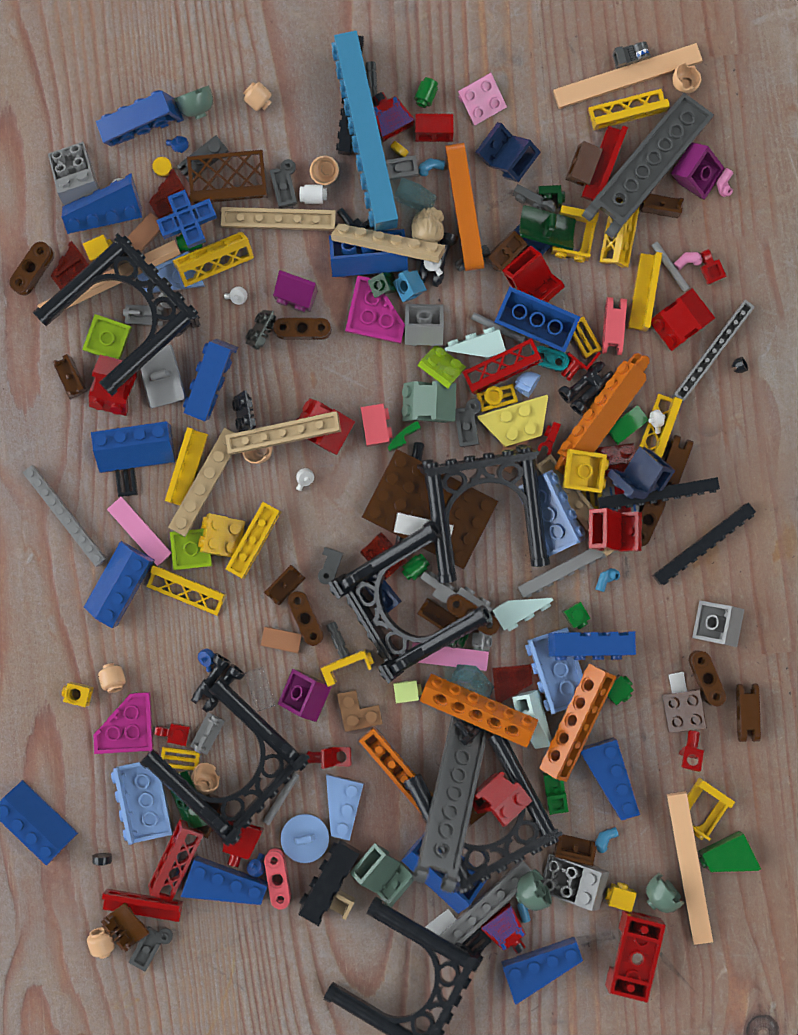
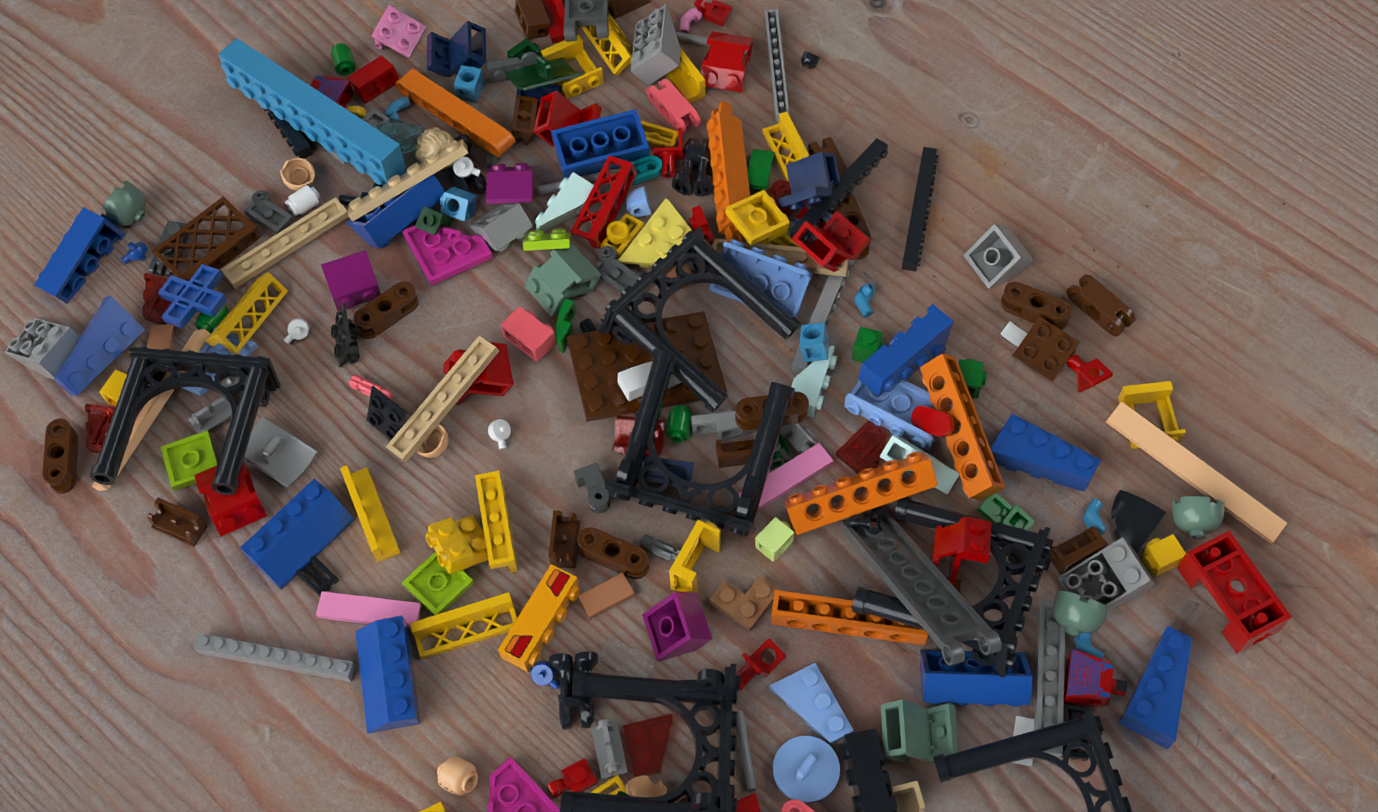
camera: 40 degrees left, 25 degrees down
(162, 166) = (133, 282): yellow tile -> none
(201, 486) = (401, 515): tan plate -> none
(209, 379) = (328, 414): blue wedge -> none
(231, 622) = (539, 618): none -> light orange brick
(231, 748) = (647, 744): none -> clear red wing
(250, 378) = (365, 386): none -> coral axle
(257, 96) = (184, 164): light nougat head -> none
(452, 302) = (510, 184): none -> magenta slope
(472, 679) = (824, 471): clear light blue slope -> none
(490, 194) = (469, 83): none -> dark azure brick
(537, 595) = (814, 342): none -> dark azure brick
(563, 704) = (933, 421): none -> red tile
(627, 861) = (1135, 518): none -> black brick
(641, 269) = (655, 46): none -> light grey slope
(657, 420) = (780, 143): white piece -> none
(729, 855) = (1218, 432): green slope -> none

